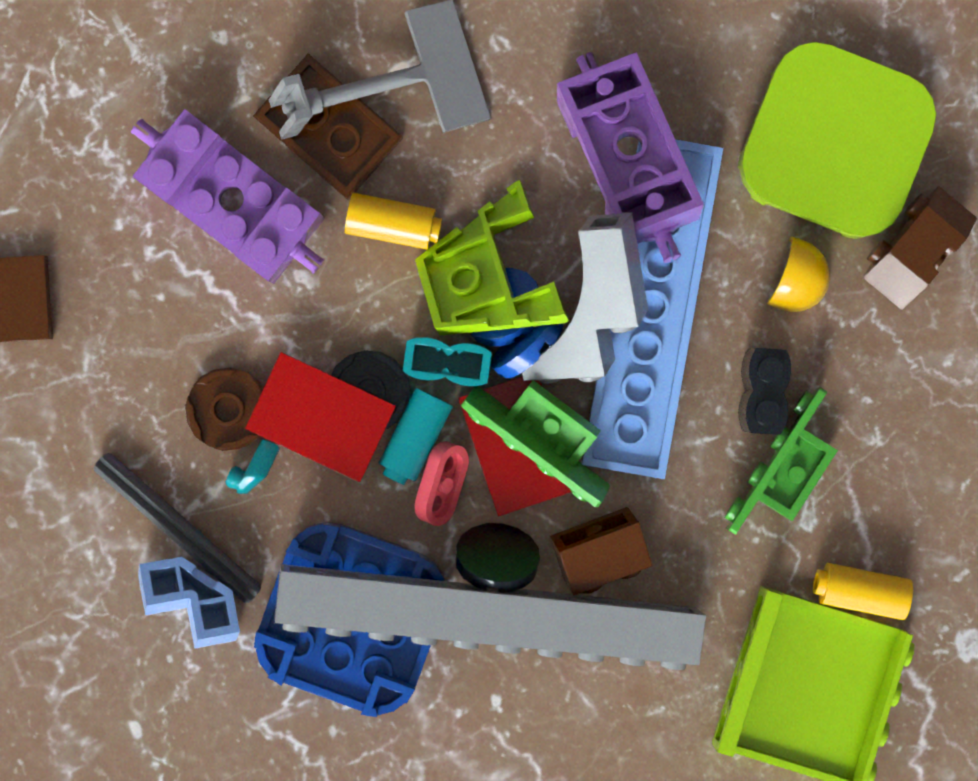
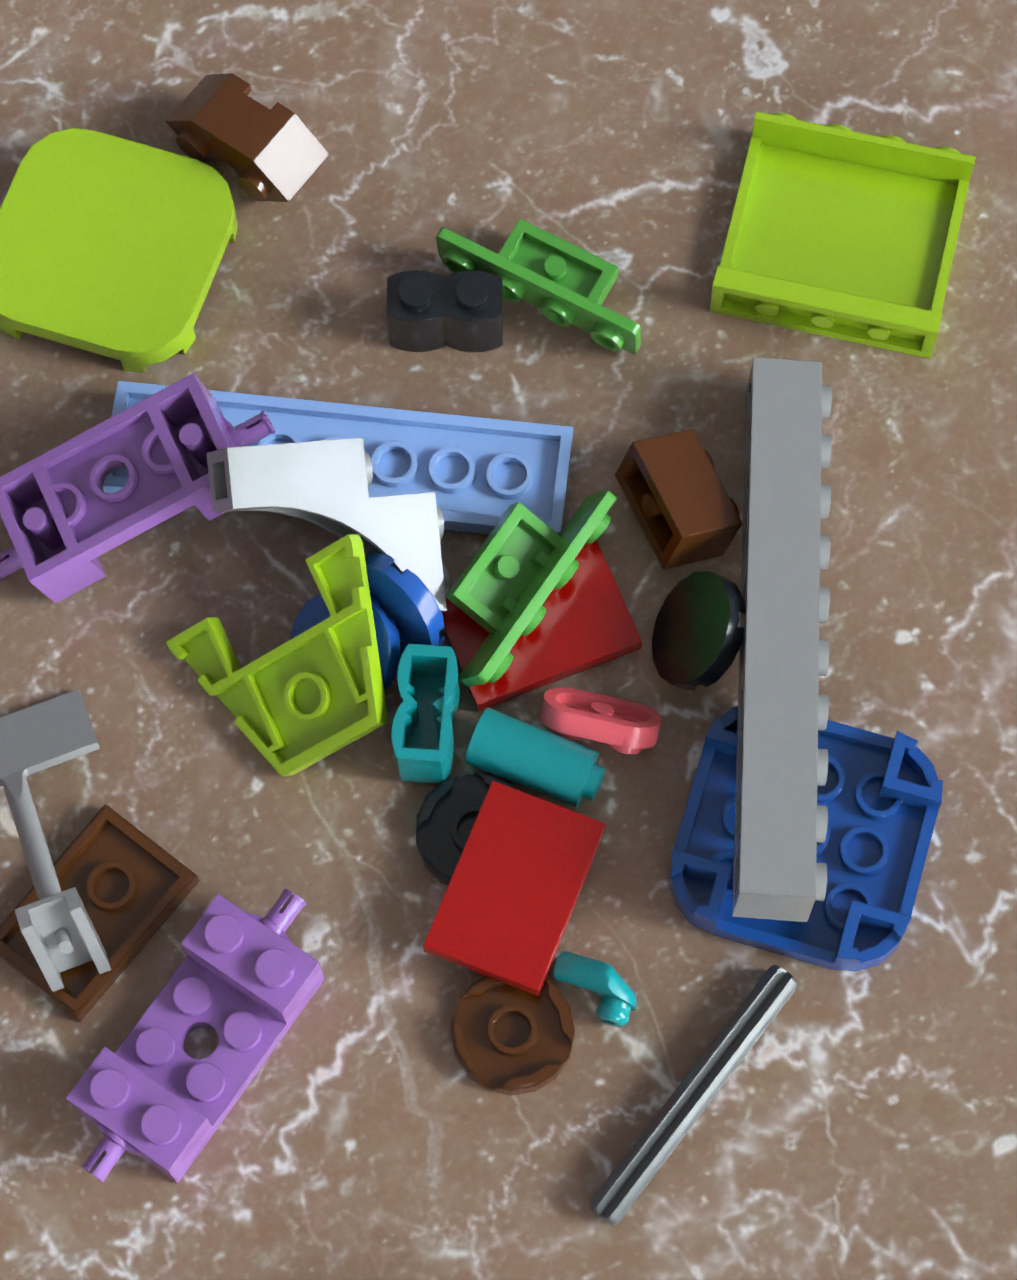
camera: 90 degrees left, 20 degrees down
(180, 585) = (806, 1031): light blue brick -> none
(392, 221) = (227, 808): yellow brick -> none
(803, 280) = (295, 271): yellow helmet -> none
(864, 591) = (704, 179): yellow brick -> none

